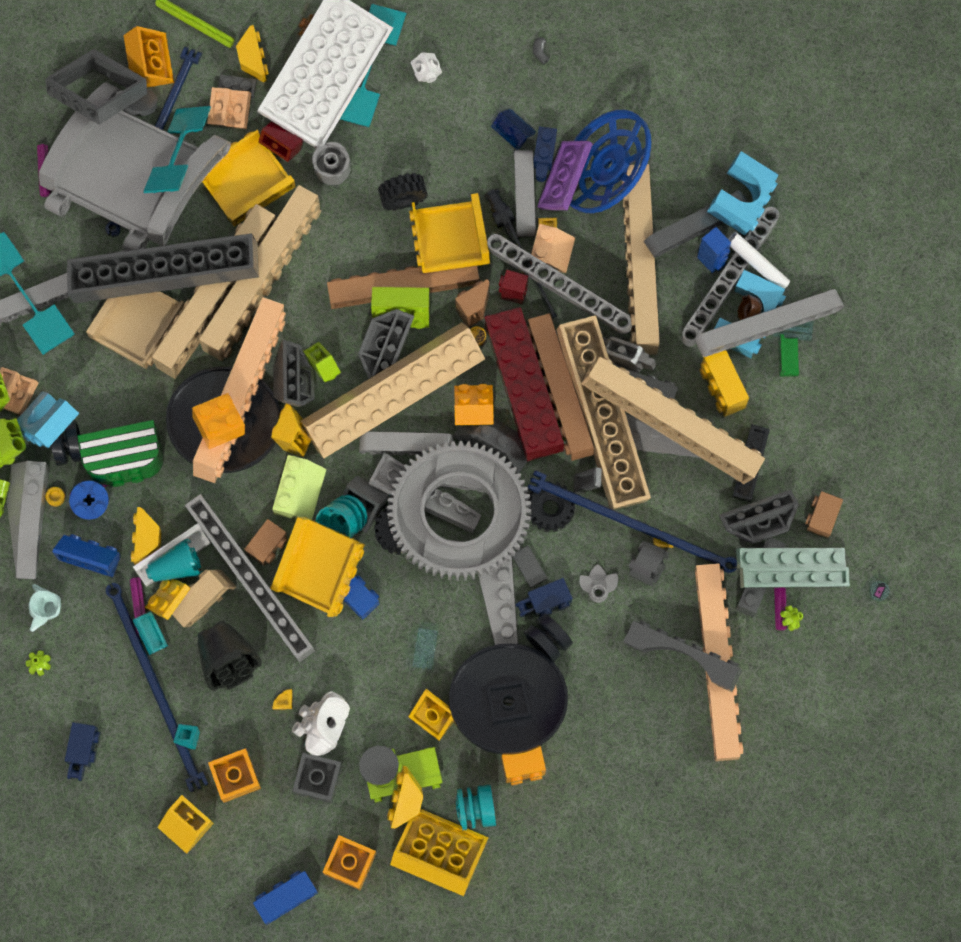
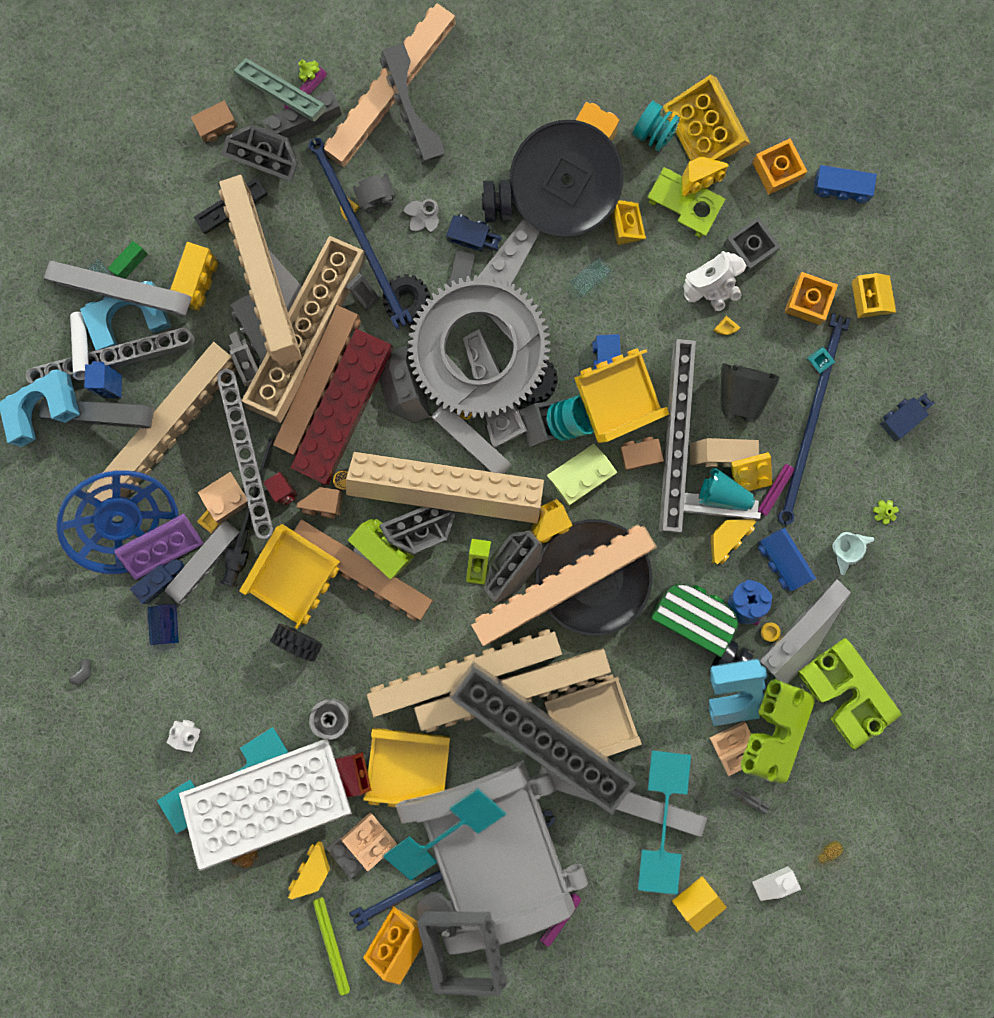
camera: 135 degrees left, 10 degrees up
(150, 633) = (785, 460): teal tile -> none
(218, 421) = (609, 560): light orange brick -> none
(379, 765) = (700, 215): dark grey tile -> none
(473, 404) = (394, 422): light orange brick -> none
(749, 307) = (121, 318): reddish brown hair -> none
(790, 557) = (269, 106): plate -> none
(879, 591) = (228, 38): clear light blue tile -> none

